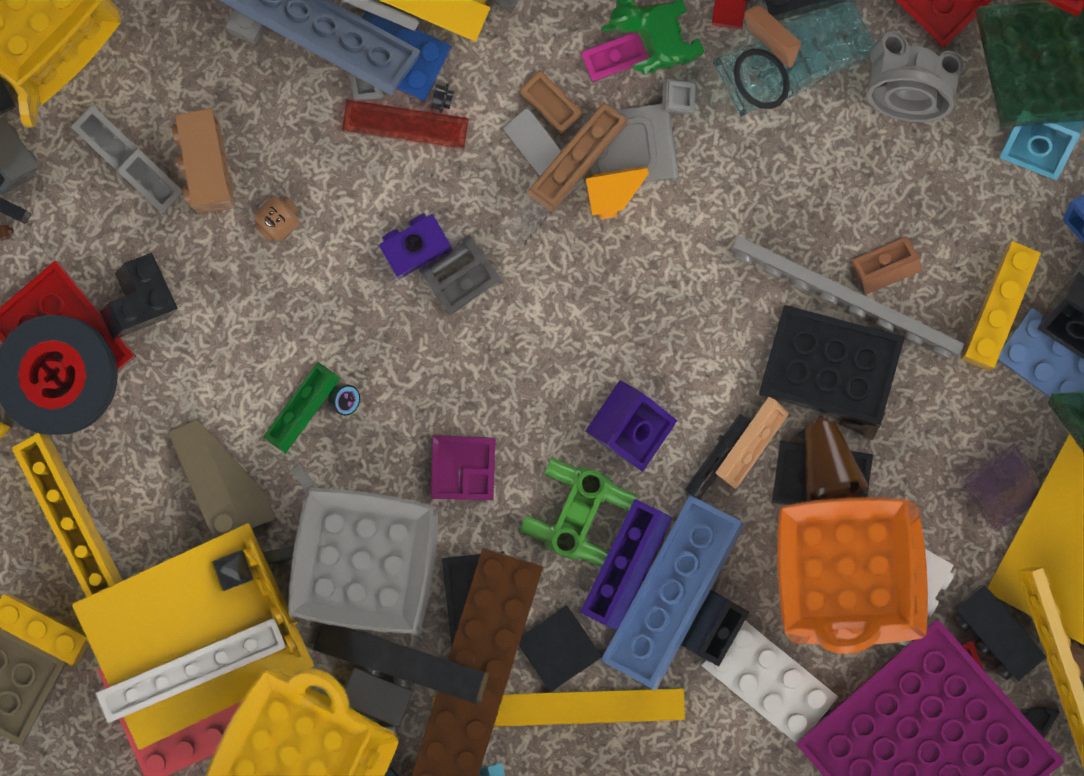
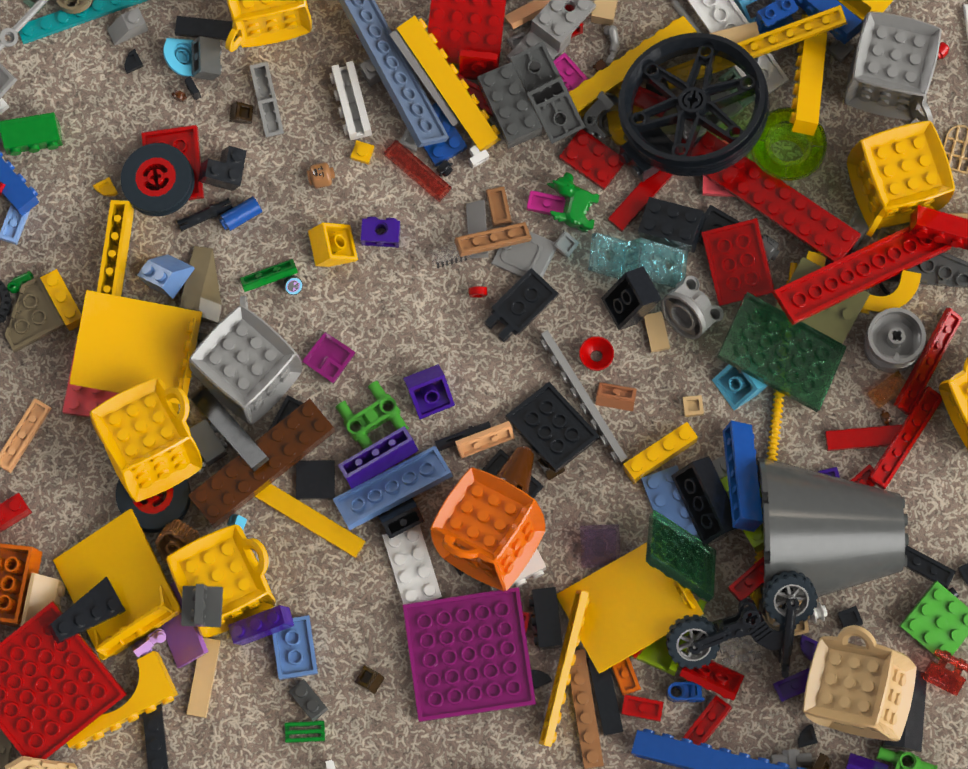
camera: 35 degrees right, 10 degrees down
(103, 200) = (241, 113): none -> dark brown slope
(159, 370) = (205, 214): none -> black pin
(159, 499) = (165, 274): none -> medium blue slope
(190, 670) = (122, 361): white plate -> none
(203, 161) = (303, 123): medium nougat brick -> none
(203, 346) = (240, 214): none -> blue brick
(232, 570) = (177, 328): black tile -> none
(247, 85) = (351, 101): none -> white brick
(311, 147) = (362, 152): none -> yellow plate
(360, 306) = (332, 244): none -> yellow slope
(465, 283) = (393, 267): flat silver plate -> none
(475, 51) = (477, 157): none -> white tile
(604, 243) = (477, 292): none -> red tile
(614, 189) = (500, 268): light orange slope -> none
(676, 220) = (521, 304): none -> black tile
(772, 34) = (631, 239): nougat slope -> none
(786, 85) = (597, 259): black piece -> none
(826, 118) = (631, 298): none -> black brick
(828, 208) = (596, 344): none -> red piece
(882, 139) = (656, 332): none -> tan tile
(1000, 211) = (693, 406): none -> tan plate

